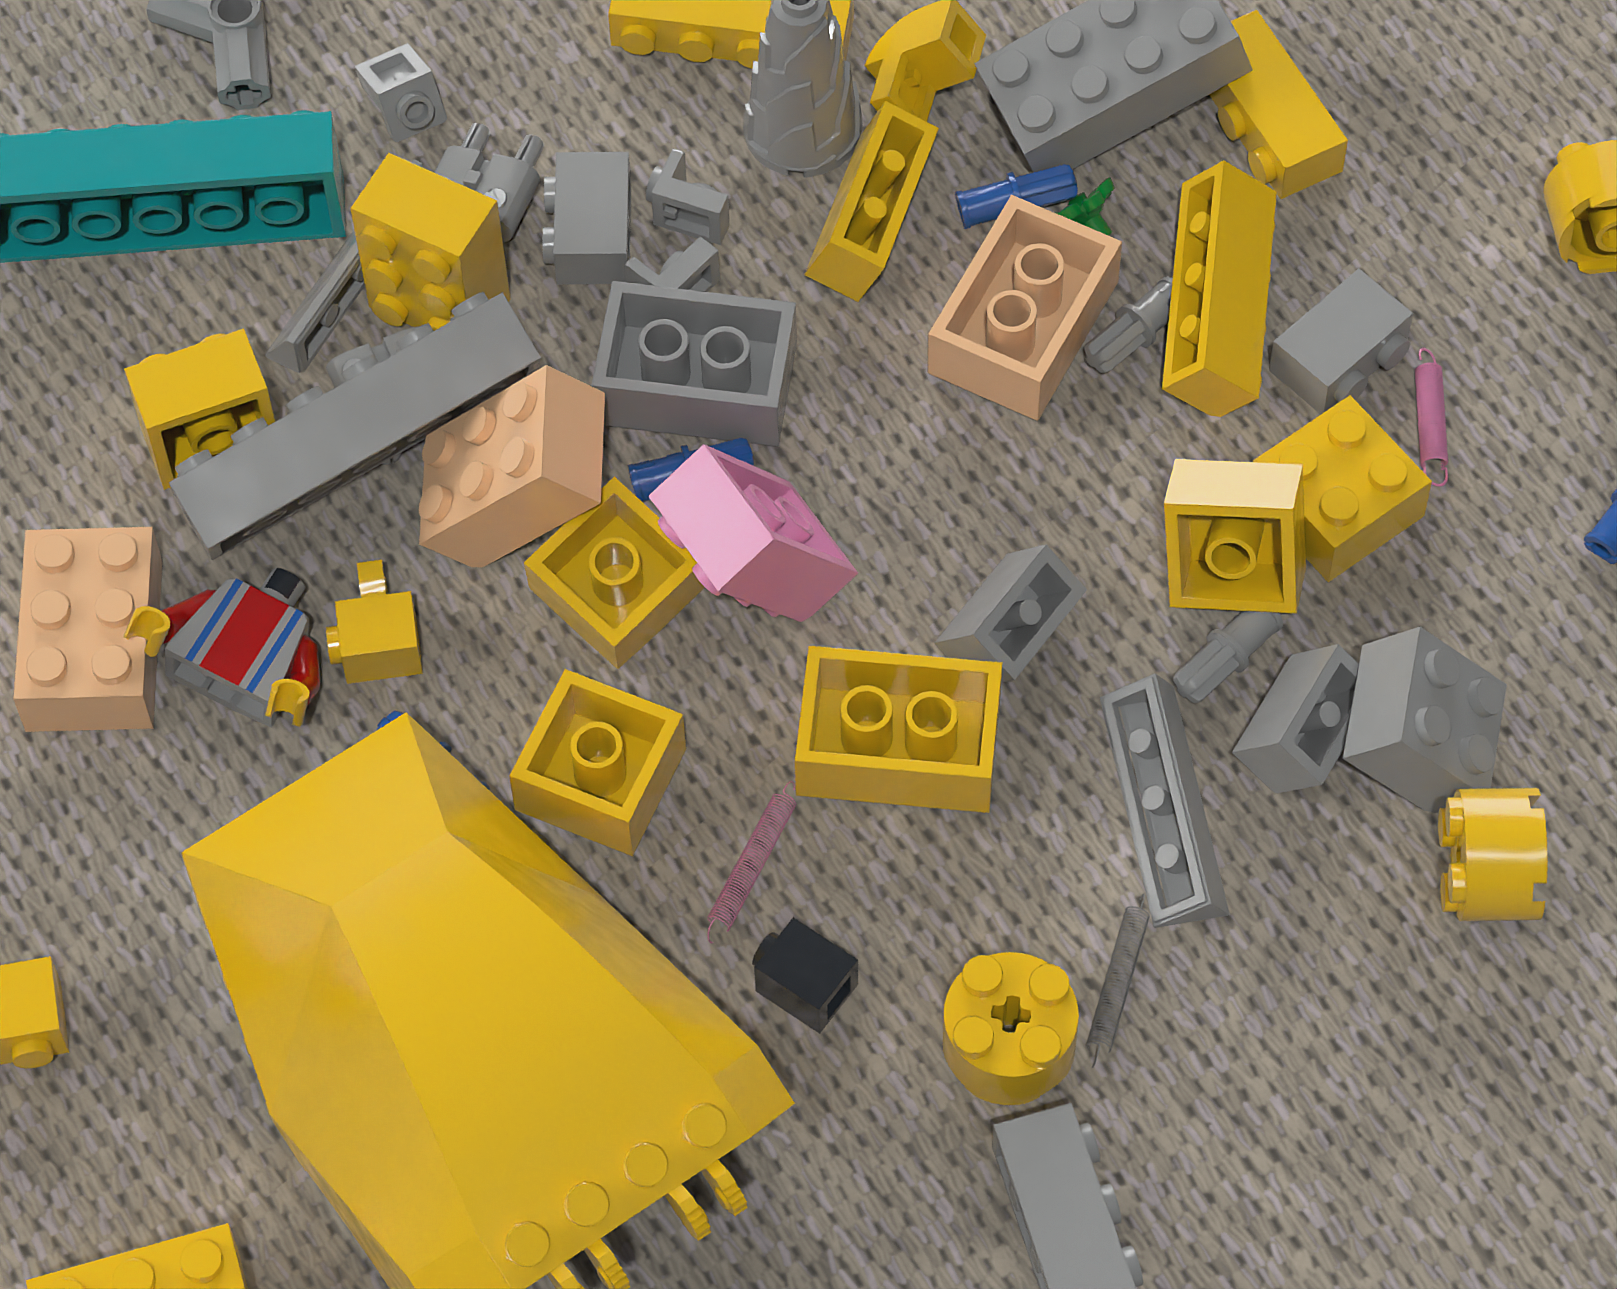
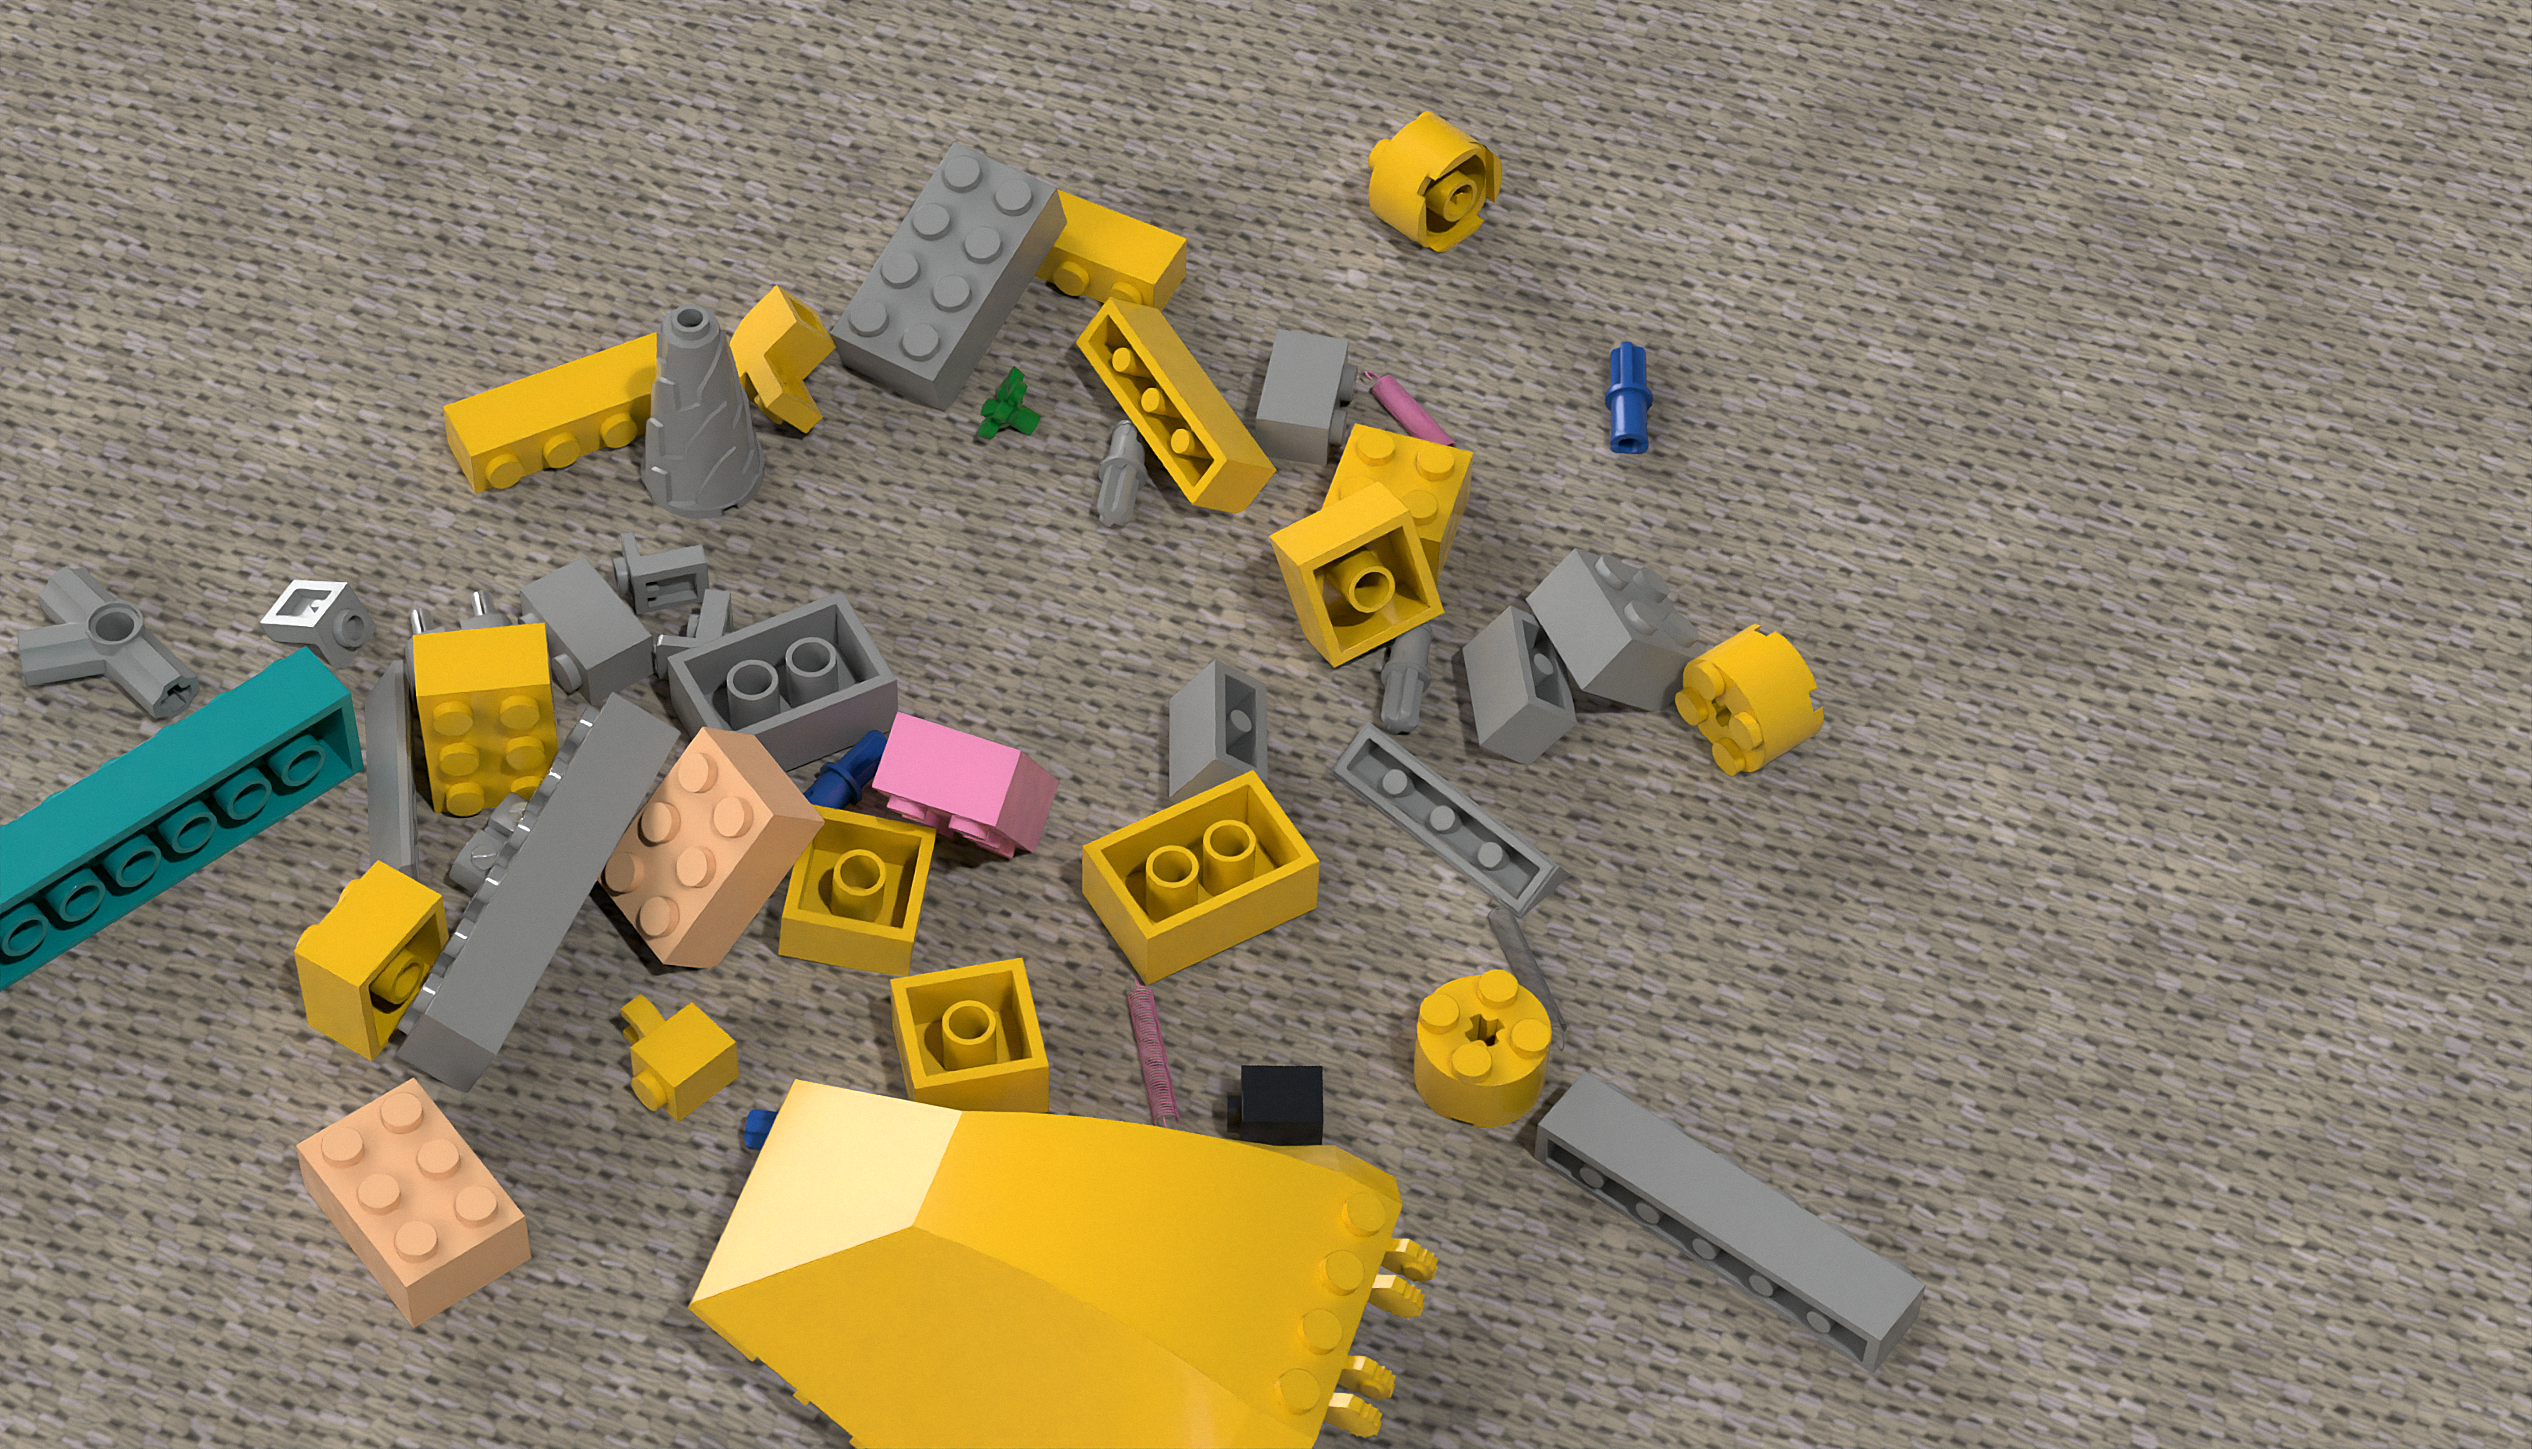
camera: 40 degrees left, 10 degrees down
(239, 646) = (575, 1137): torso -> none
(871, 201) = (827, 488): yellow brick -> none
(1024, 307) = (1027, 502): light nougat brick -> none
(1038, 188) = (937, 427): blue axle -> none

